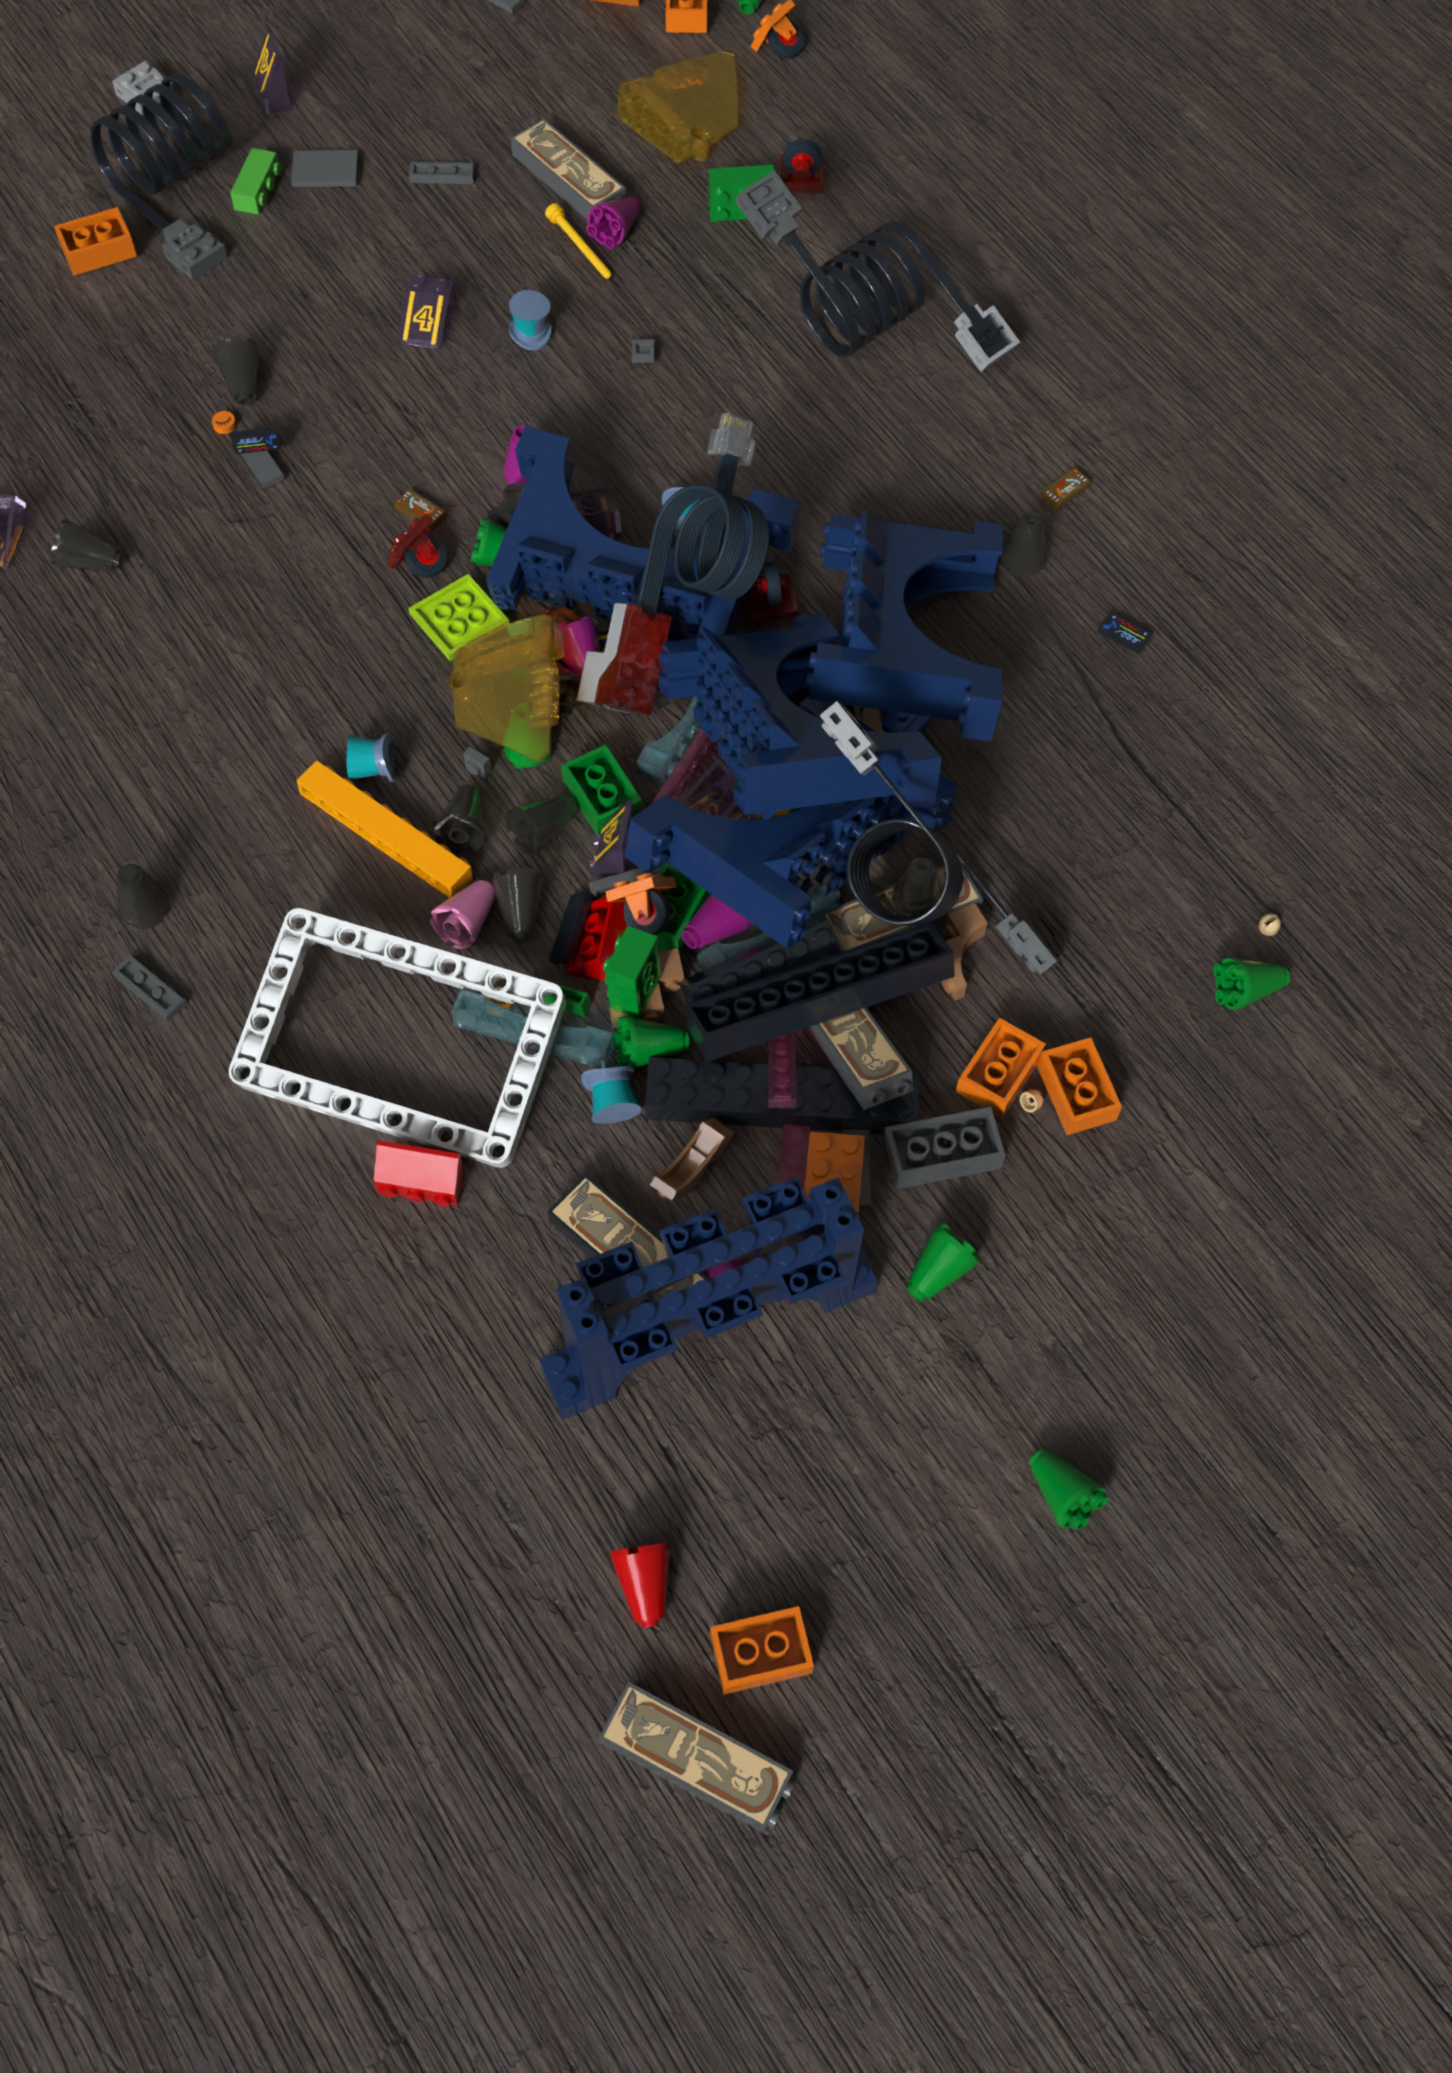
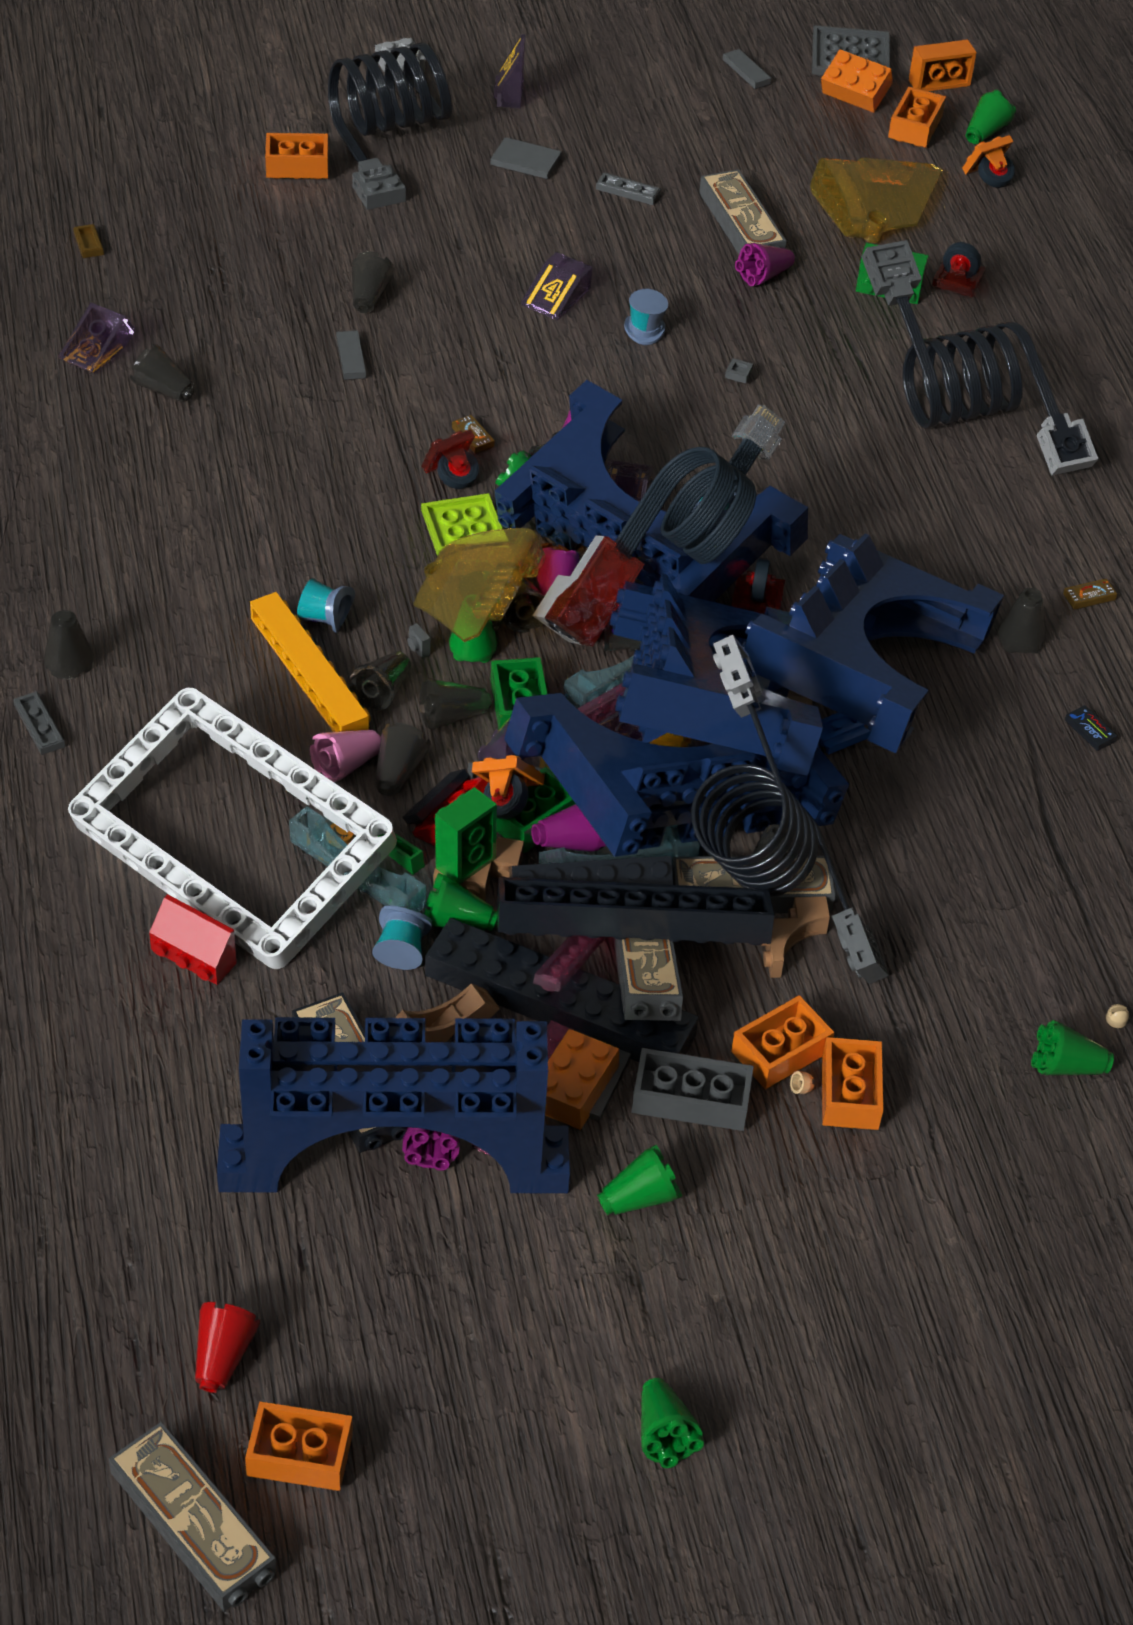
camera: 20 degrees right, 15 degrees down
(223, 422) = (335, 319): orange tile -> none
(255, 181) = (458, 150): bright green brick -> none
(256, 440) = (354, 337): black tile -> none
(556, 215) = (714, 247): yellow piece -> none

